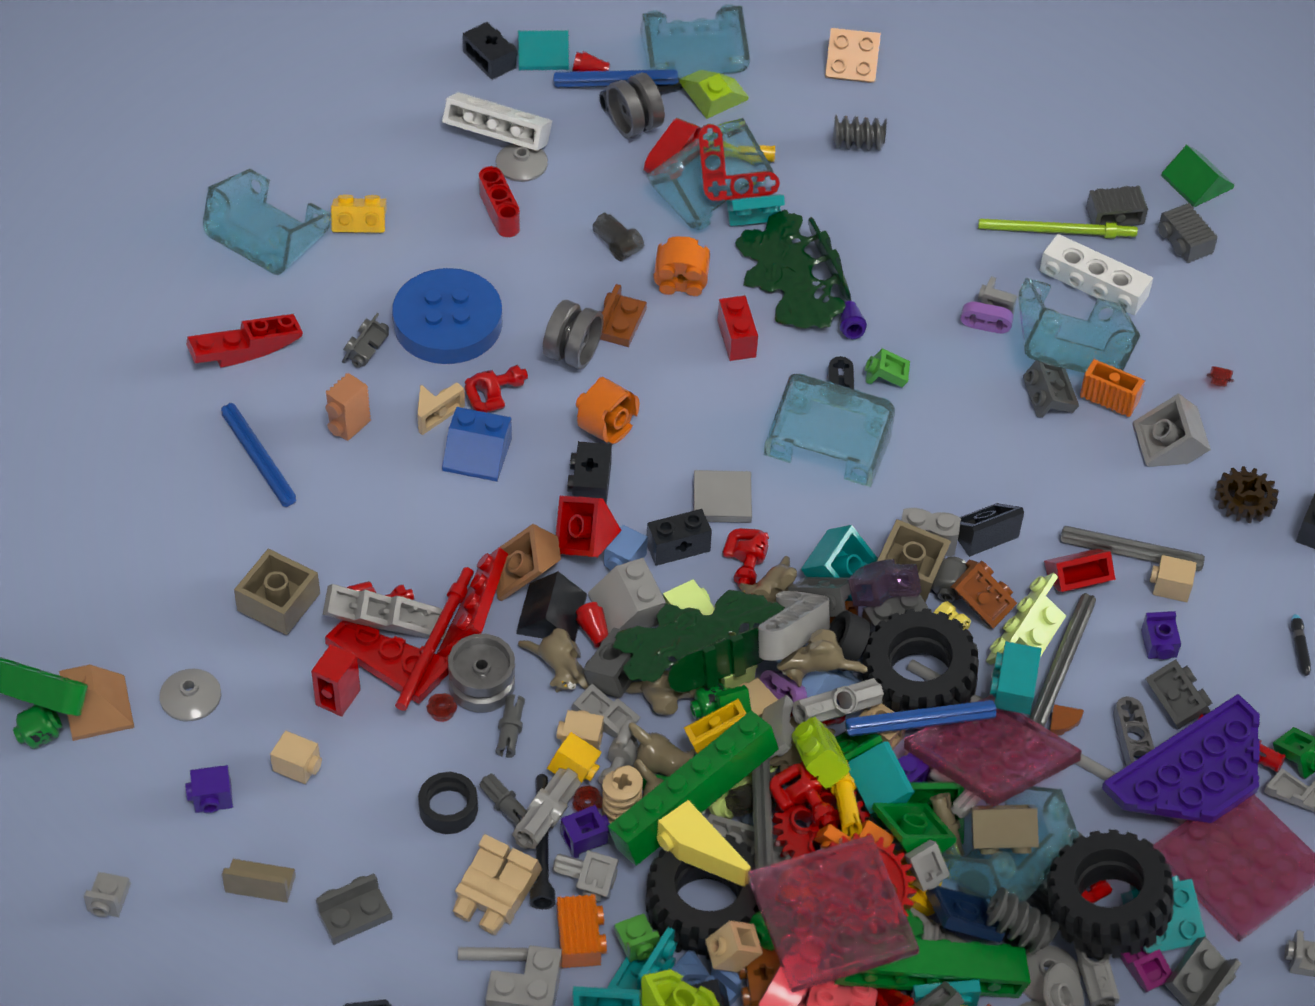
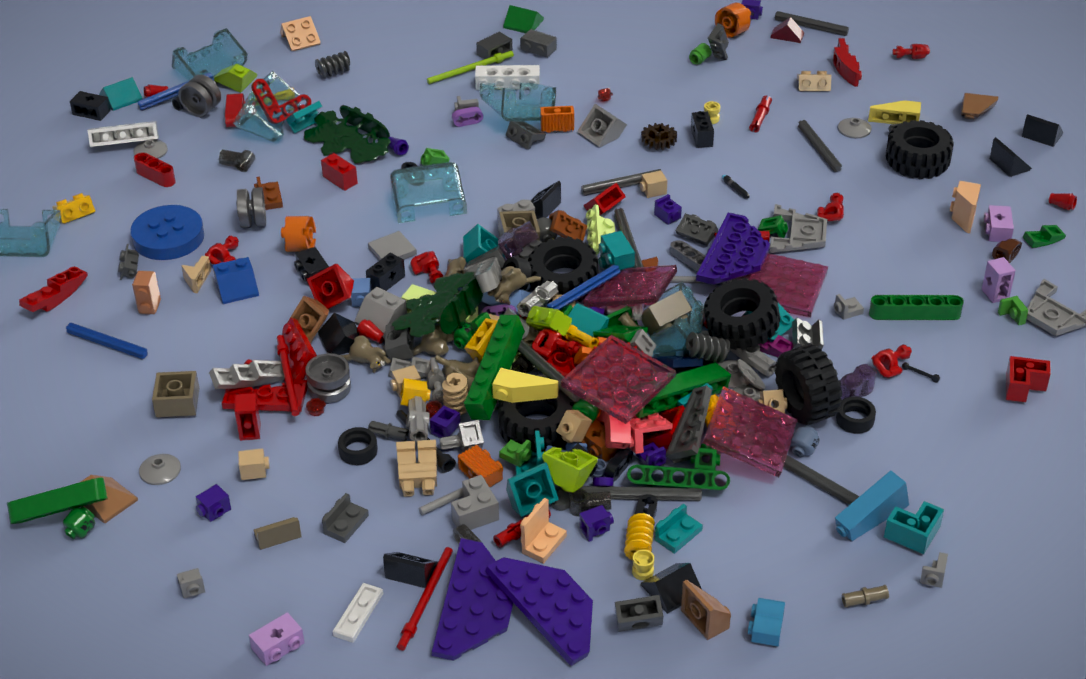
camera: 30 degrees left, 10 degrees down
(510, 726) = (362, 396): dark grey pin -> none
(681, 266) = (286, 155): orange brick -> none

